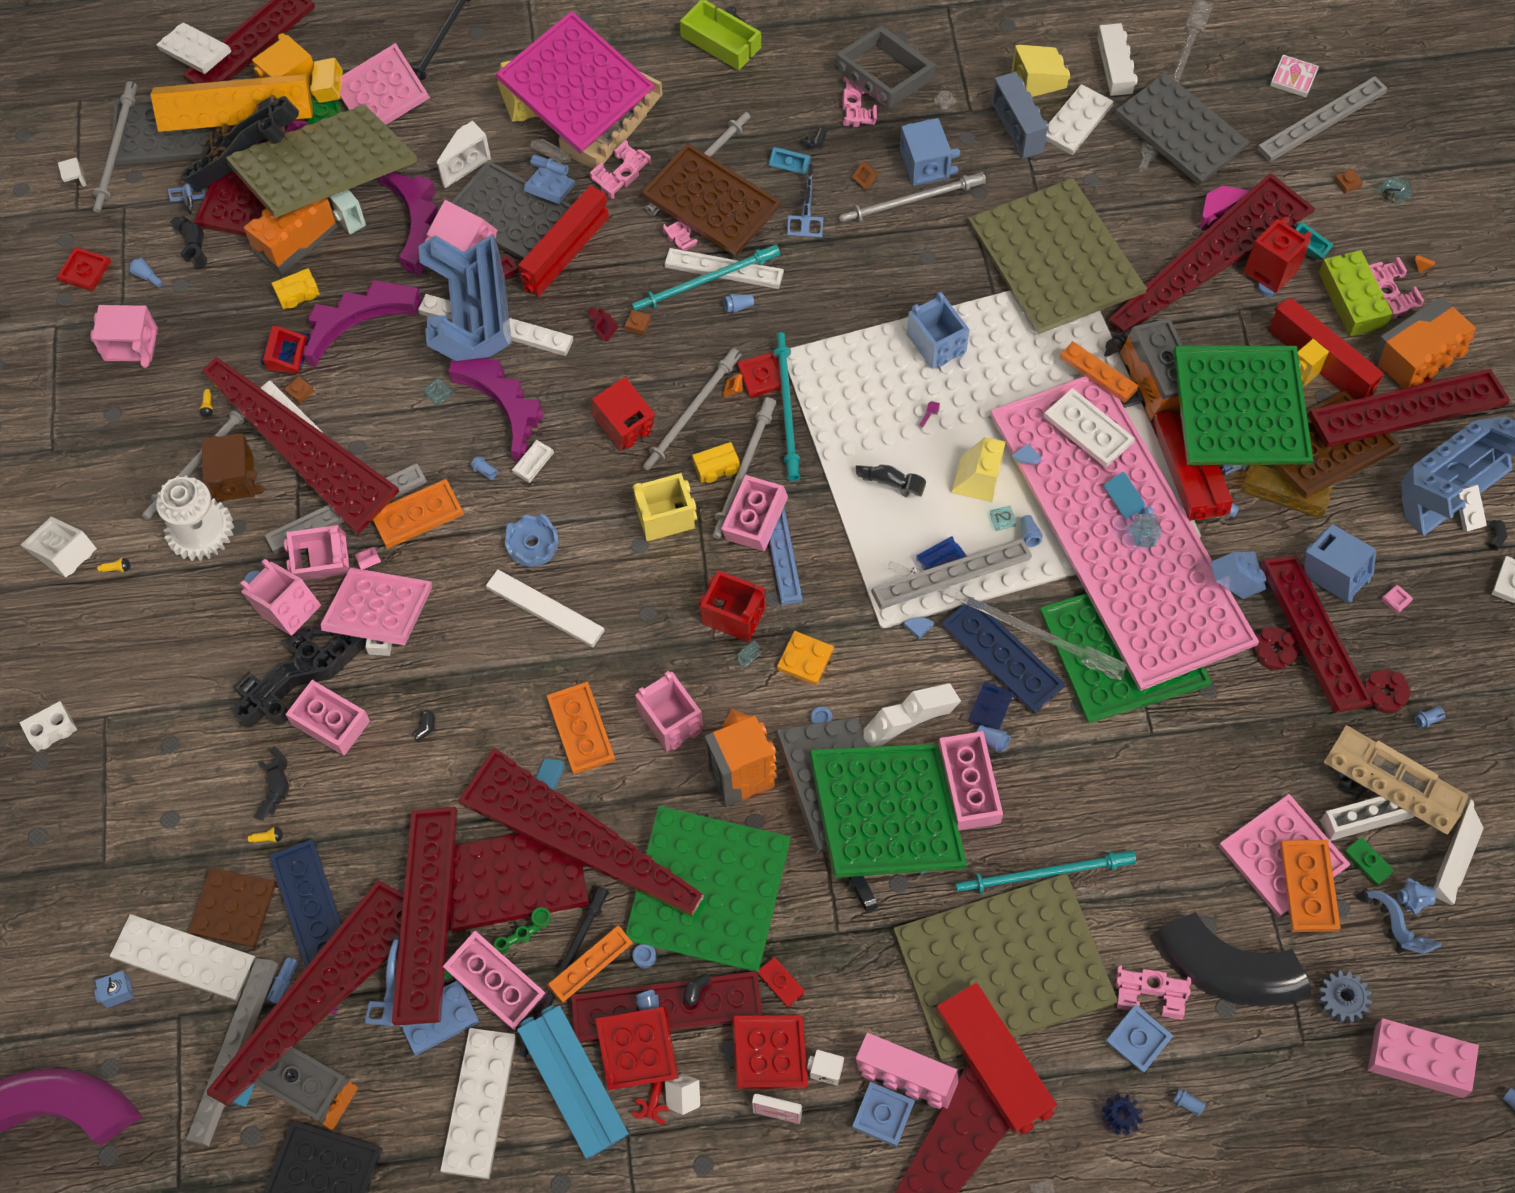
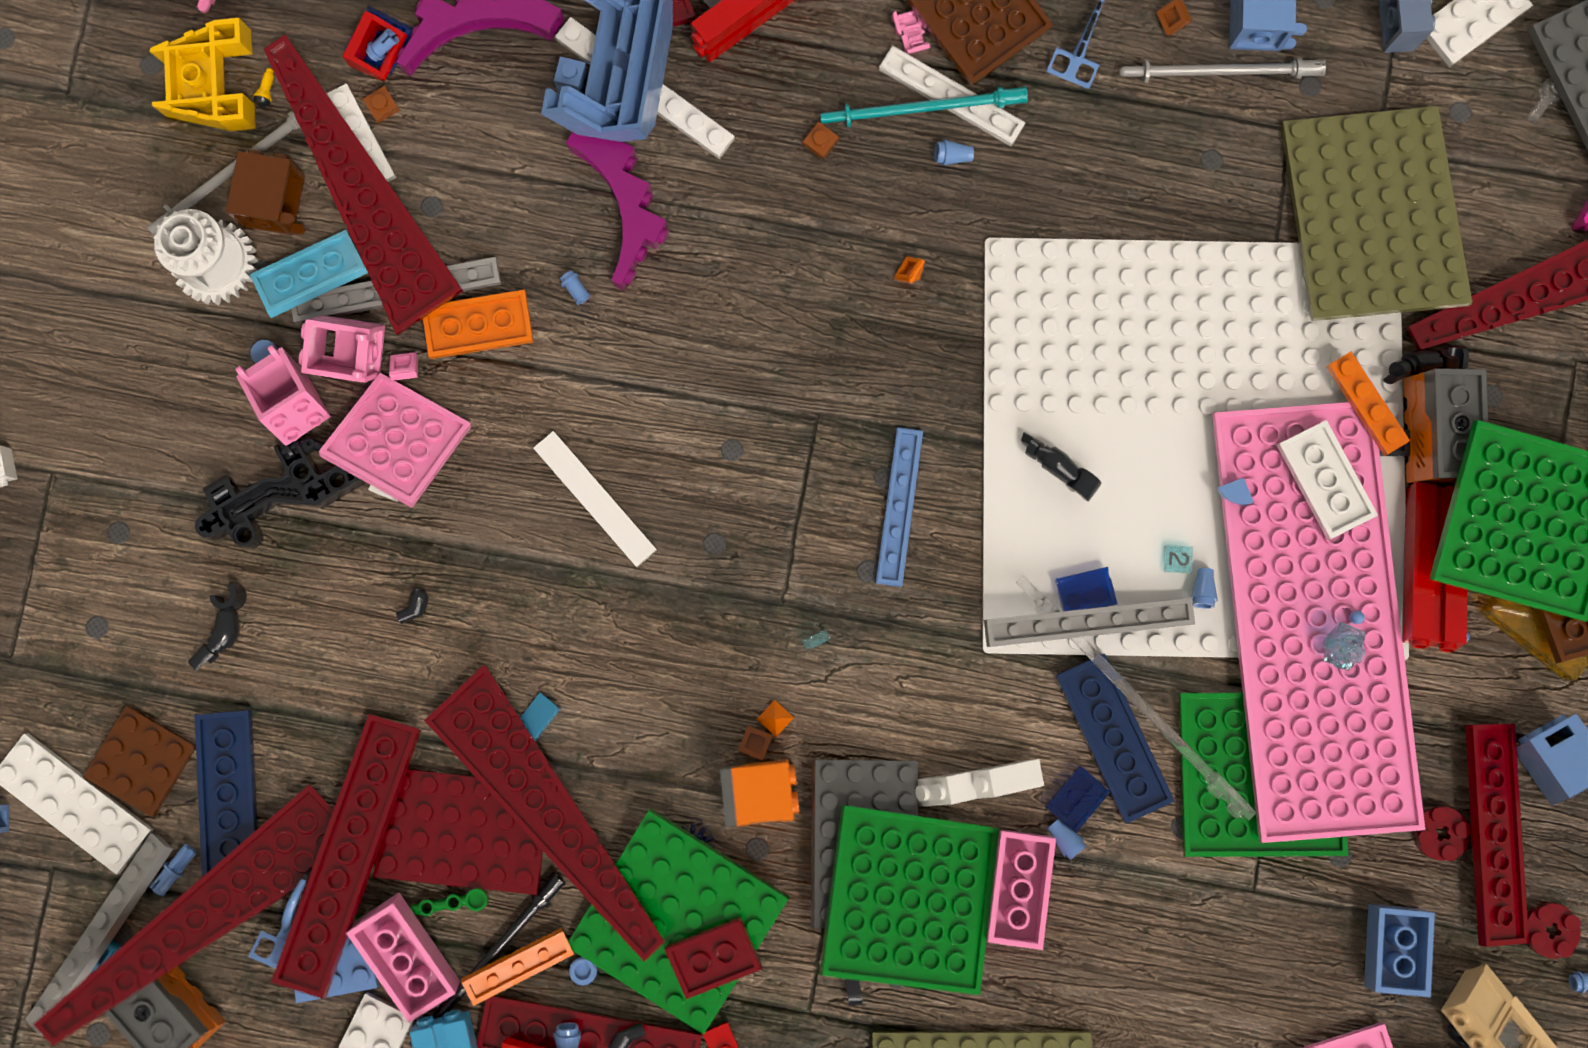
camera: 15 degrees right, 20 degrees up
(59, 546) = (44, 233): white slope -> none
(120, 565) = (112, 280): yellow piece -> none
(154, 408) = (197, 76): none -> yellow wedge
(274, 835) = (206, 687): yellow piece -> none
(276, 513) = (308, 273): none -> medium azure plate
(290, 347) = (377, 49): none -> medium blue pin
(328, 717) = (302, 565): bright pink brick -> none
(437, 391) = (548, 161): clear light blue tile -> none
(531, 528) = (597, 389): medium blue plate -> none
(532, 461) = (636, 297): white plate -> none
(580, 728) = (592, 669): orange plate -> none
(605, 324) = (778, 131): dark red plate -> none
(618, 405) = (760, 267): red container -> none
(657, 510) = (766, 416): light yellow container -> none
(669, 711) = (697, 683): bright pink container -> none
(716, 463) = (856, 372): yellow brick -> none
(724, 367) = (907, 240): light grey bar -> none
(742, 608) = (820, 581): red container -> none
(746, 901) = (713, 957): none -> dark red tile
(754, 513) = (880, 460): bright pink brick -> none
(760, 374) = (951, 264): red tile -> none
(763, 418) = (932, 328): light grey bar -> none
(791, 459) = (950, 394): teal bar -> none
(805, 658) = (881, 663): light orange plate -> none
(821, 715) = (875, 746): medium blue tile -> none
(918, 626) = (1028, 666): medium blue tile -> none
(933, 407) = (1144, 383): magenta hand -> none
(937, 331) = (1186, 278): medium blue container -> none
(980, 470) = (1172, 492): light yellow slope -> none
(1111, 860) = (1147, 1034): teal bar -> none
(1124, 495) = (1336, 587): dark azure slope -> none
(1239, 573) = (1437, 730): medium blue wedge -> none
(1276, 735) = (1399, 950): none -> medium blue brick

